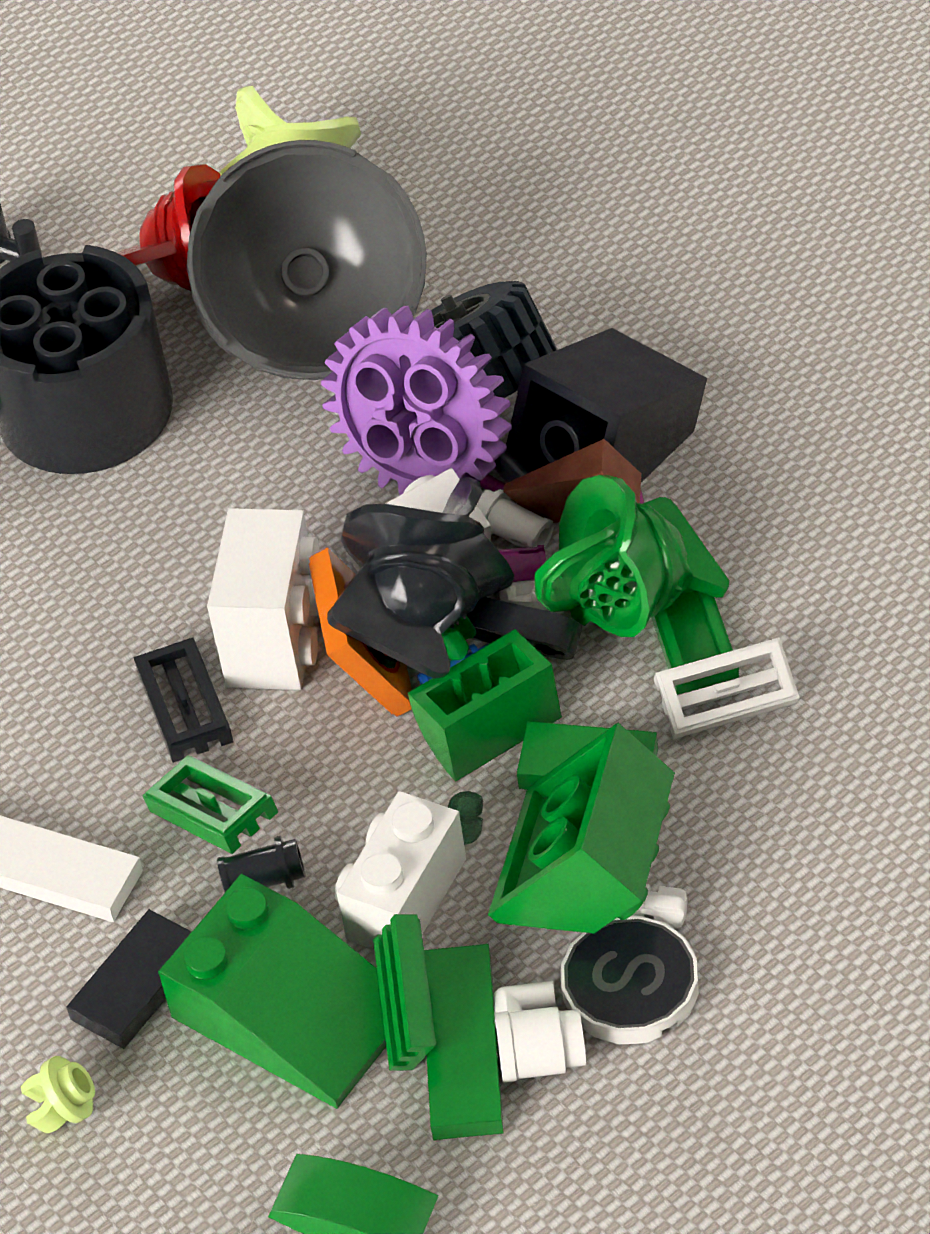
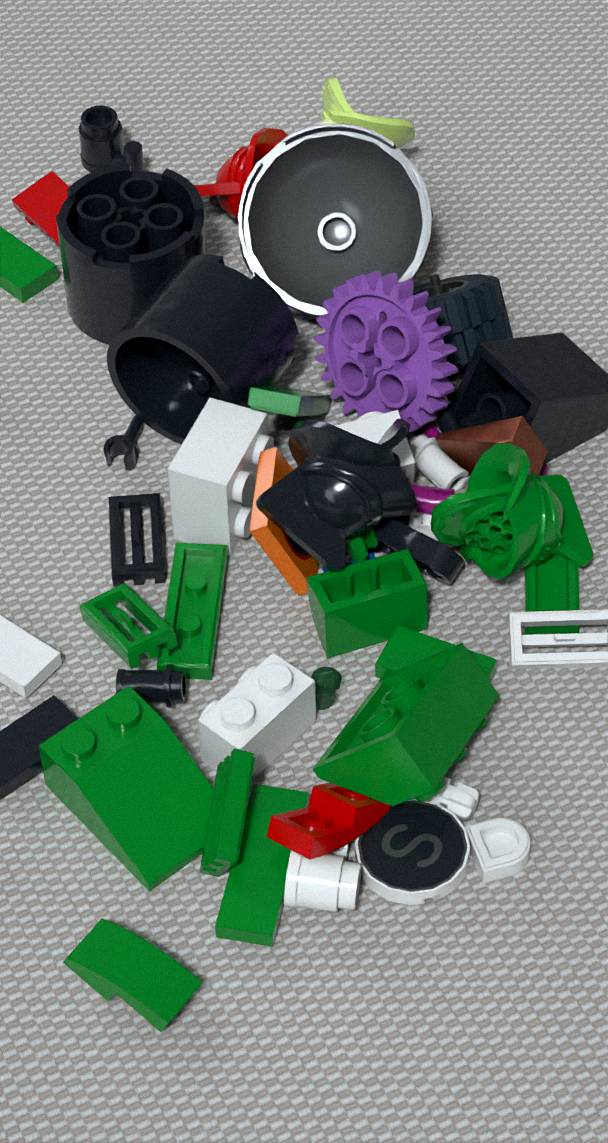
camera: 10 degrees right, 0 degrees up
(130, 589) = (124, 445): none -> black hand
(188, 444) = (200, 340): none -> black brick
(280, 762) = (195, 607): none -> green tile
(317, 489) = (288, 401): none -> green tile
(525, 970) = (329, 822): none -> red slope
(727, 949) = (498, 848): none -> white tile

